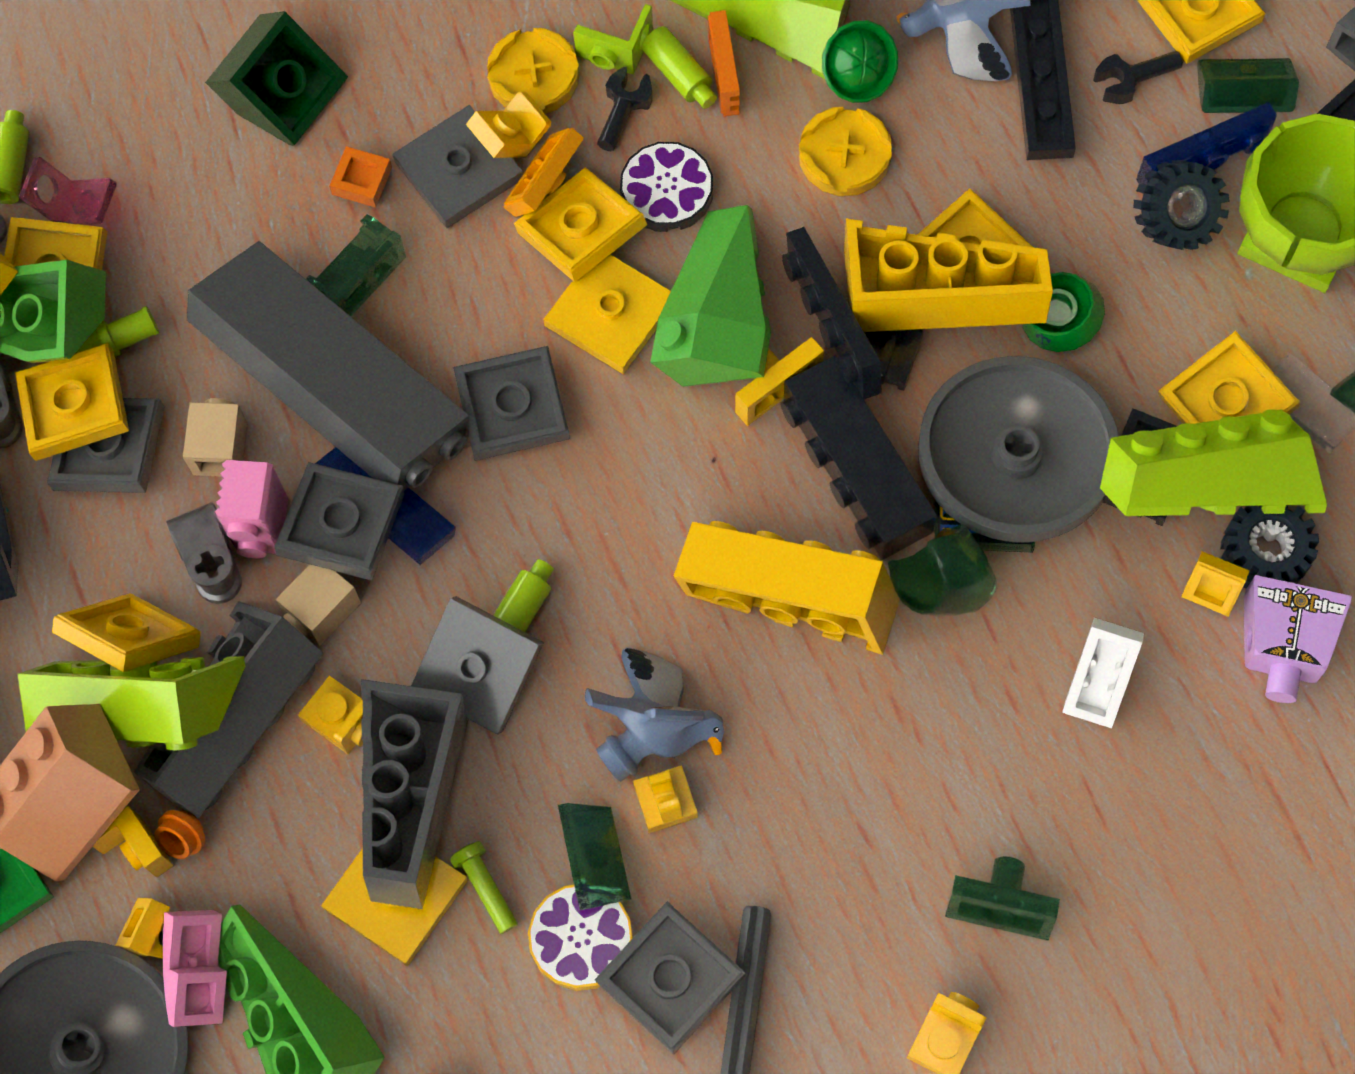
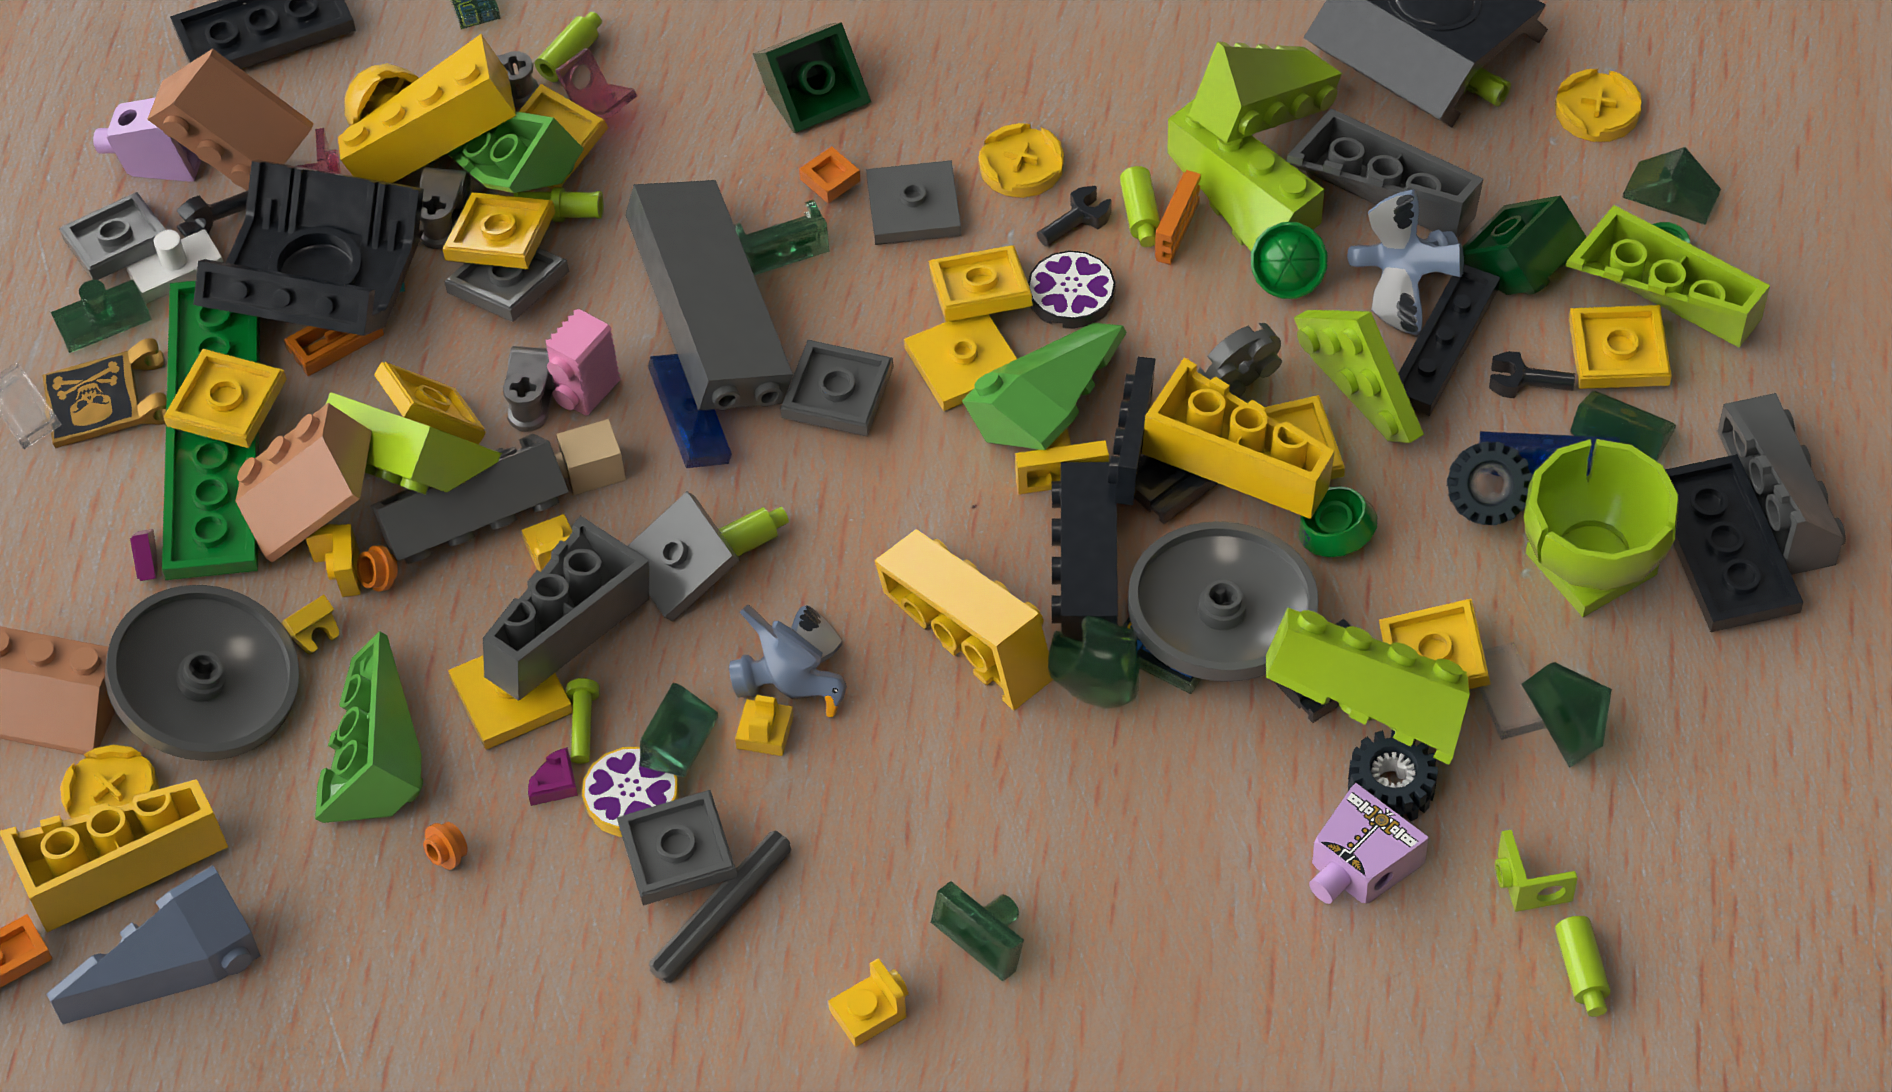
camera: 30 degrees right, 15 degrees down
(190, 968) = (323, 663): bright pink slope -> none
(213, 435) = (594, 295): tan brick -> none
(339, 521) = (641, 400): dark grey plate -> none
(496, 963) = (553, 779): none -> magenta tile
(510, 131) = (968, 192): yellow bracket -> none
(544, 172) = (976, 234): light orange plate -> none
(610, 51) = (1093, 171): lime bracket -> none
(845, 151) = (1231, 311): yellow tile -> none
(892, 177) = (1244, 358): none -> dark grey plate
(998, 140) = (1358, 362): none -> lime plate
(1103, 672) = (1177, 795): white tile -> none
(1215, 583) = (1323, 781): yellow tile -> none

